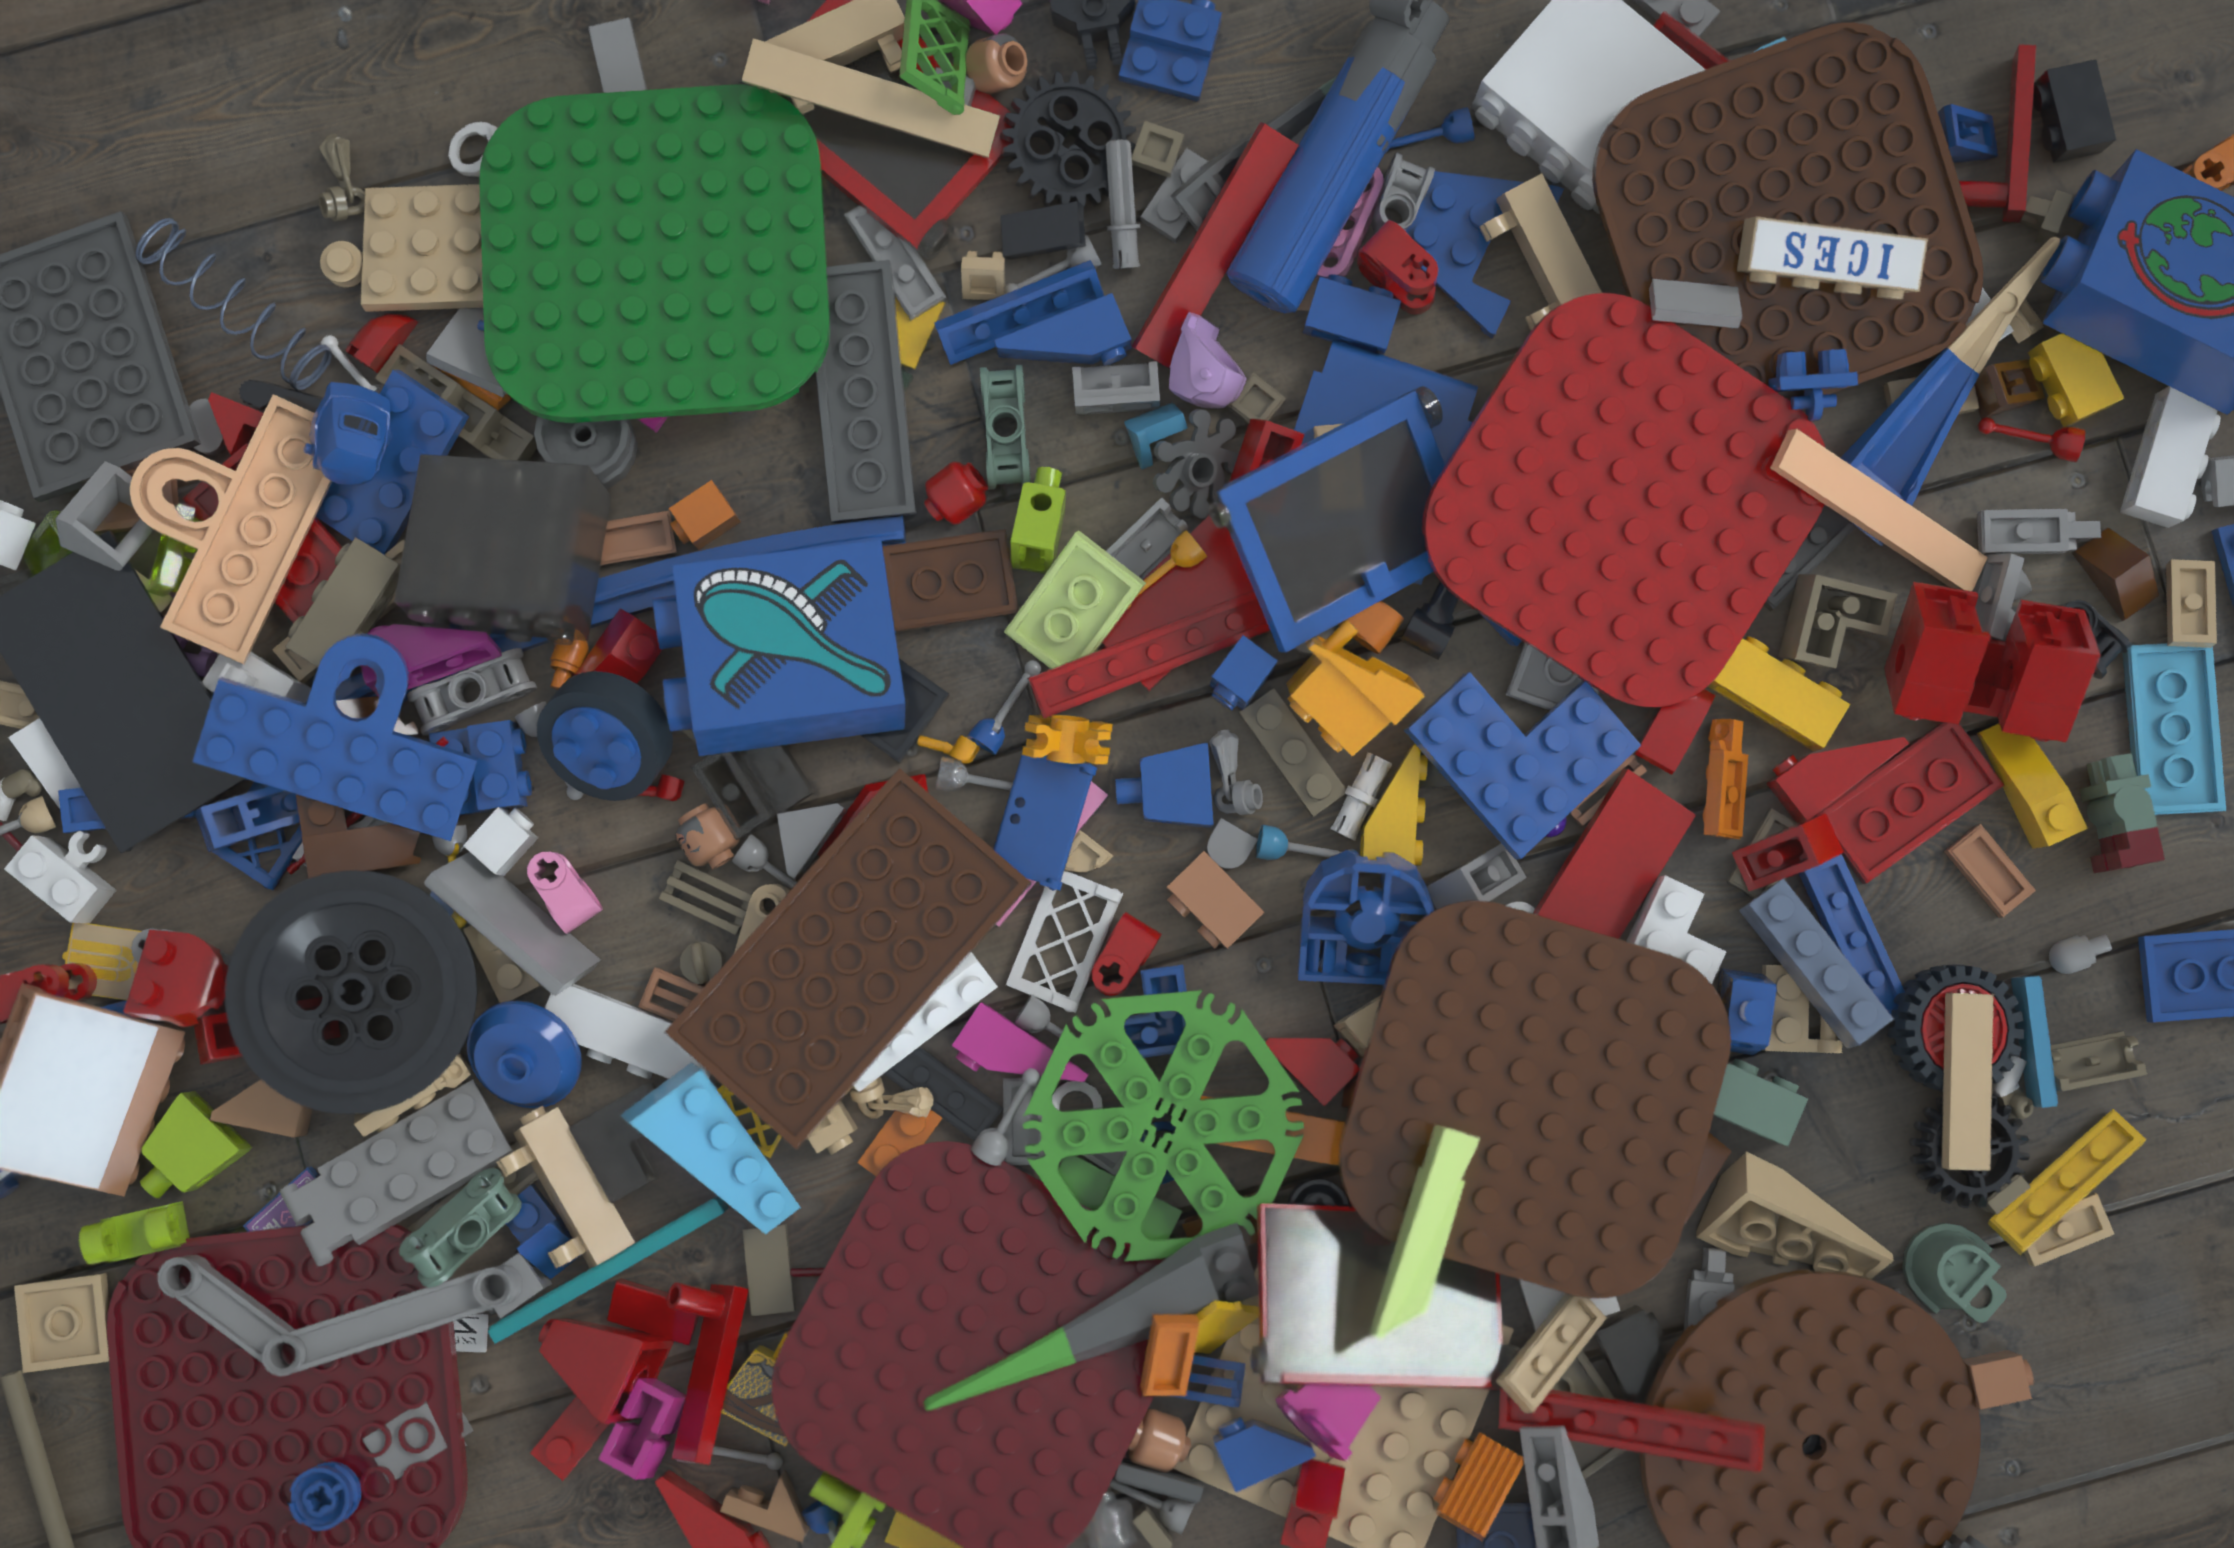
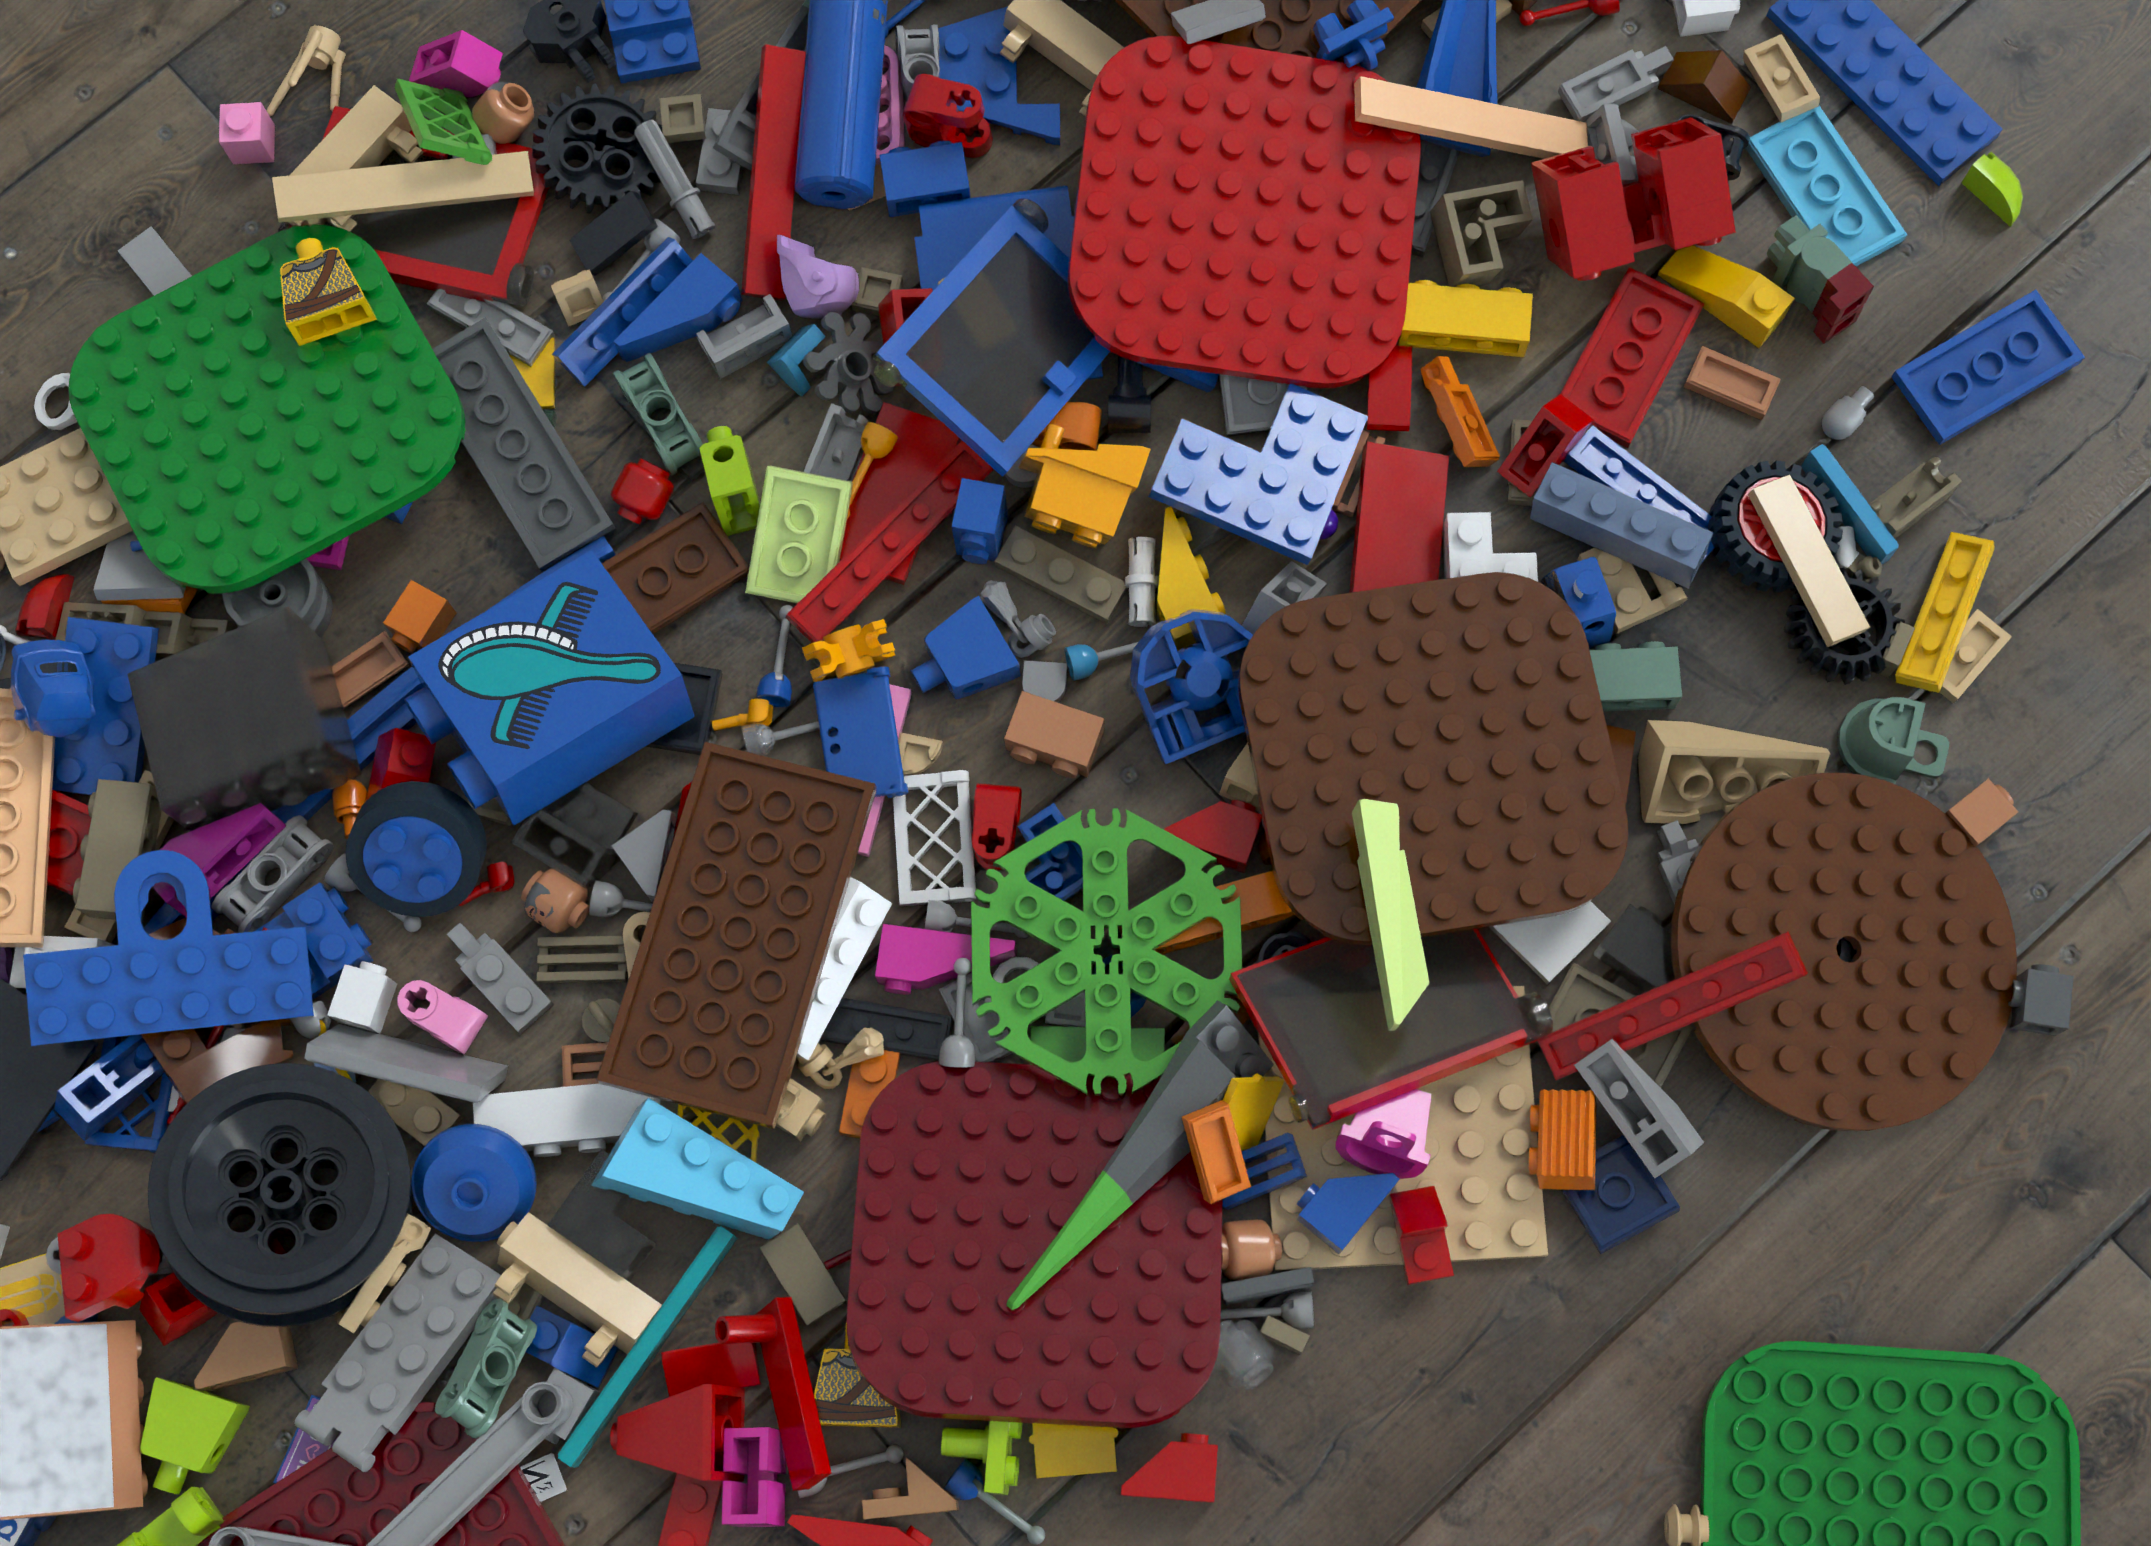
camera: 25 degrees left, 10 degrees down
(628, 879) = (500, 978): none -> light grey hinge
(749, 172) = (321, 294): none -> torso
(1550, 1351) = (1565, 978): tan tile -> none
(1820, 778) = (1545, 364): red slope -> none

